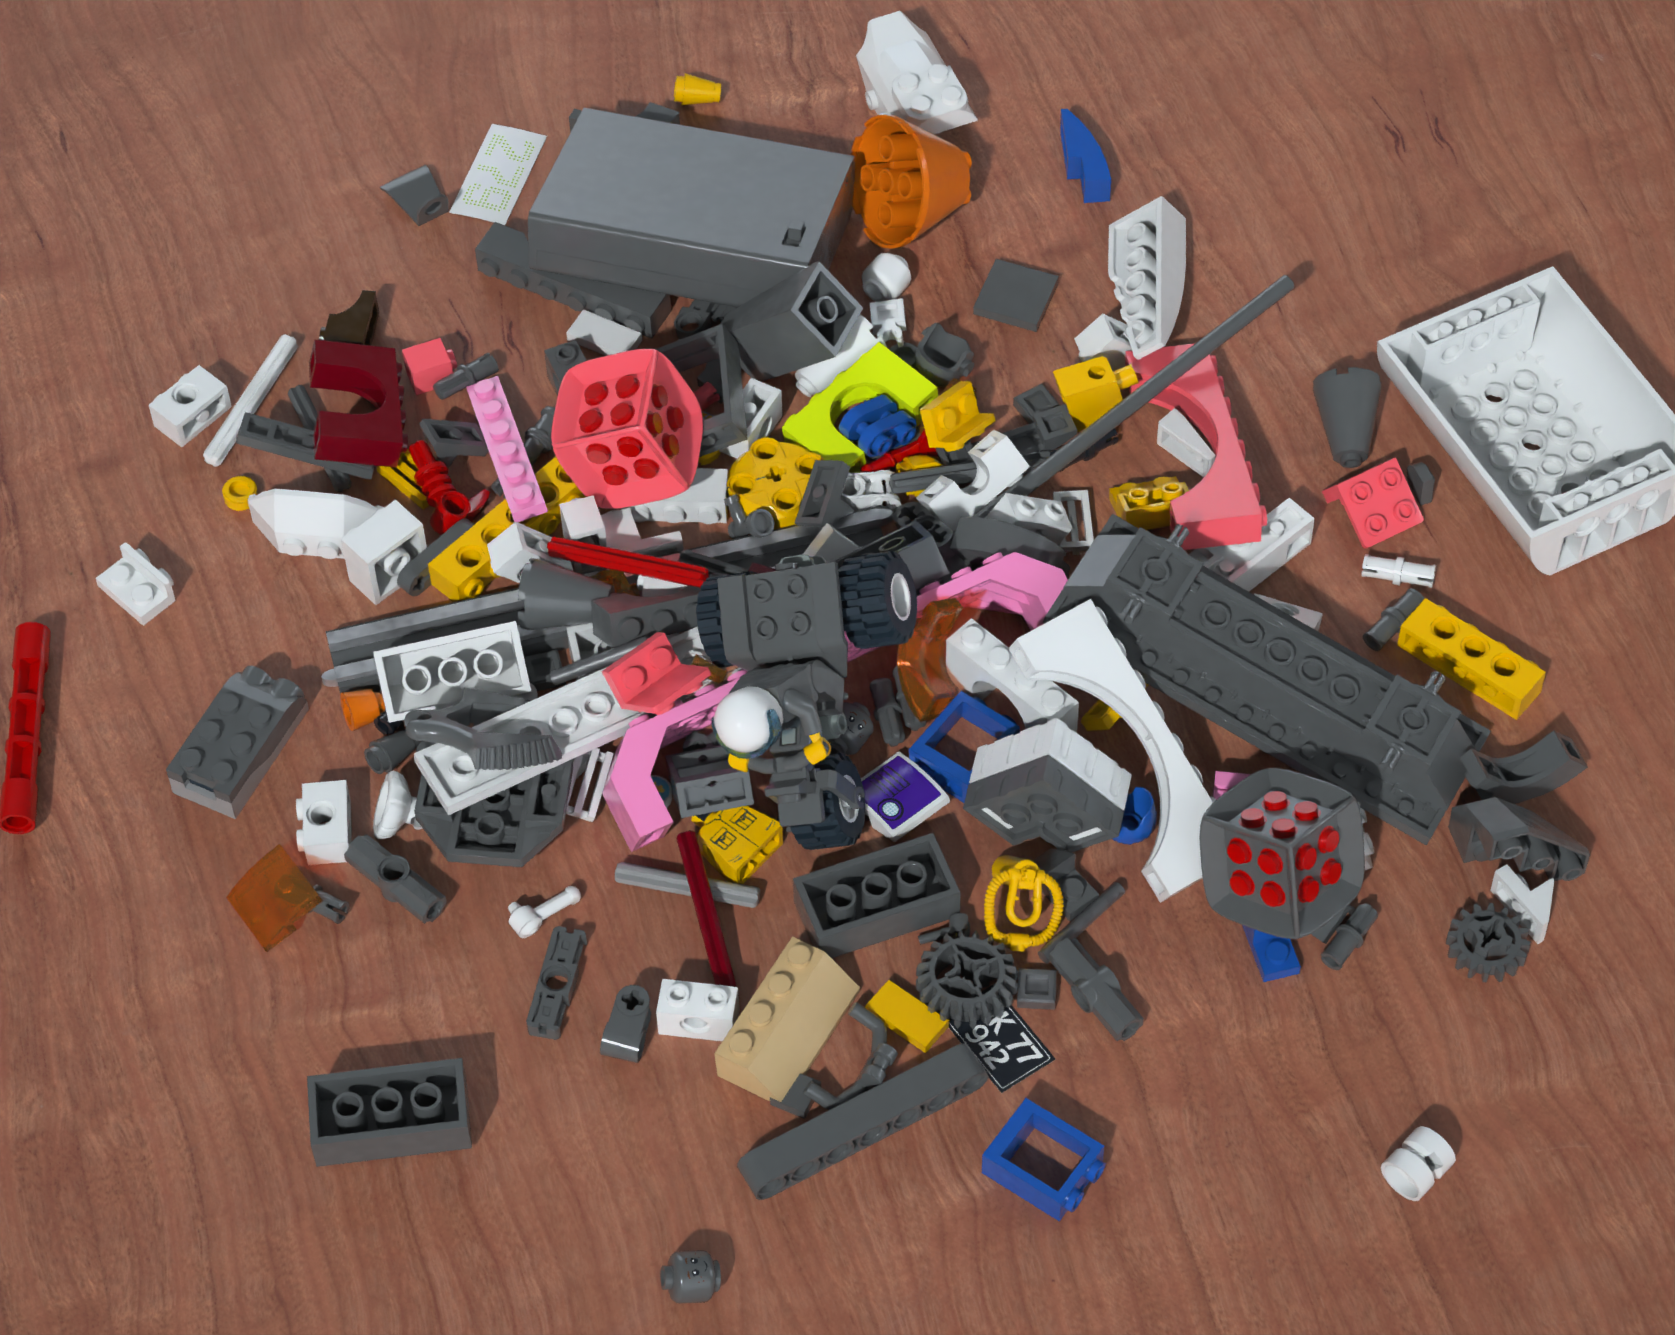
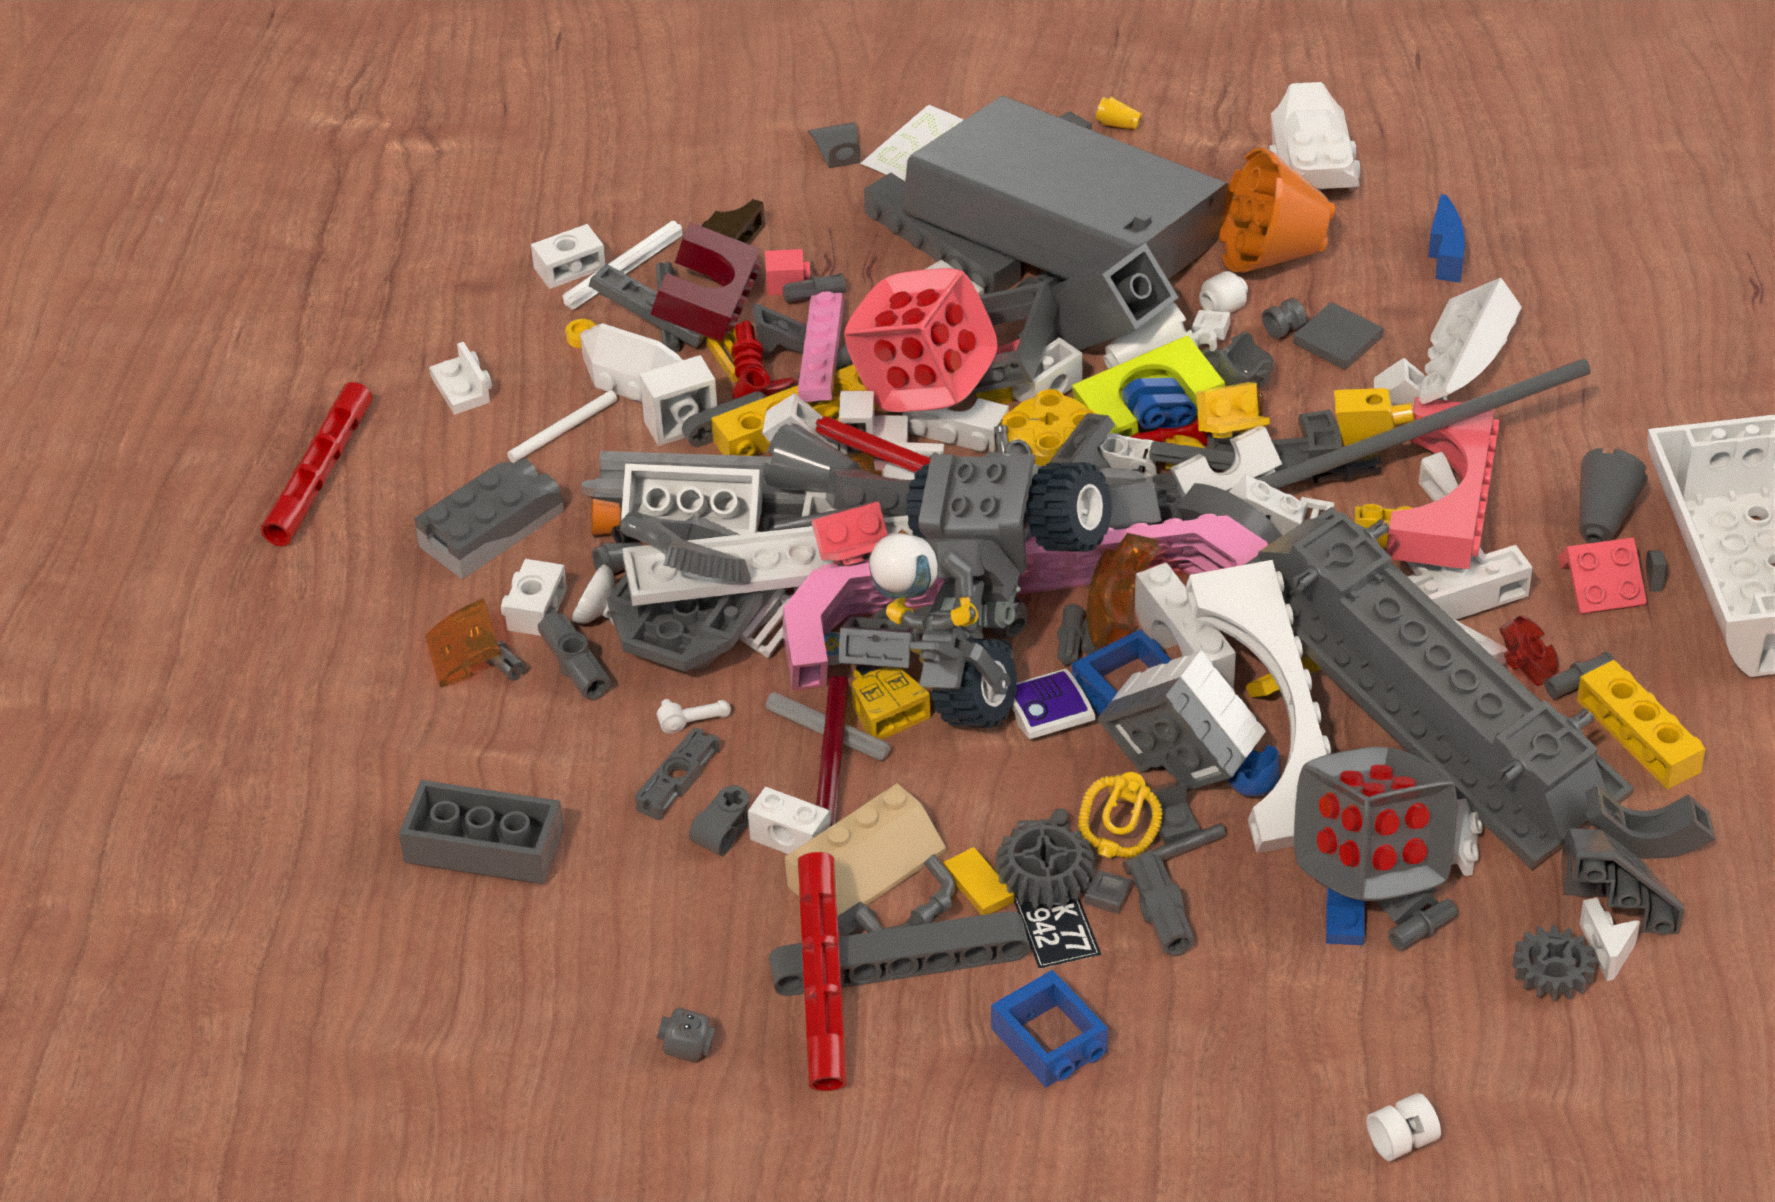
camera: 20 degrees right, 10 degrees down
(266, 610) = (562, 426): none -> white bar
(805, 1170) = (822, 972): none -> red piece
(858, 727) = (1027, 635): dark grey head -> none
(877, 896) = (990, 774): dark grey brick -> none
(961, 287) = (1283, 318): none -> dark grey wheel
(1338, 609) = (1528, 651): none -> clear red plate
(1398, 571) = (1602, 636): white pin -> none

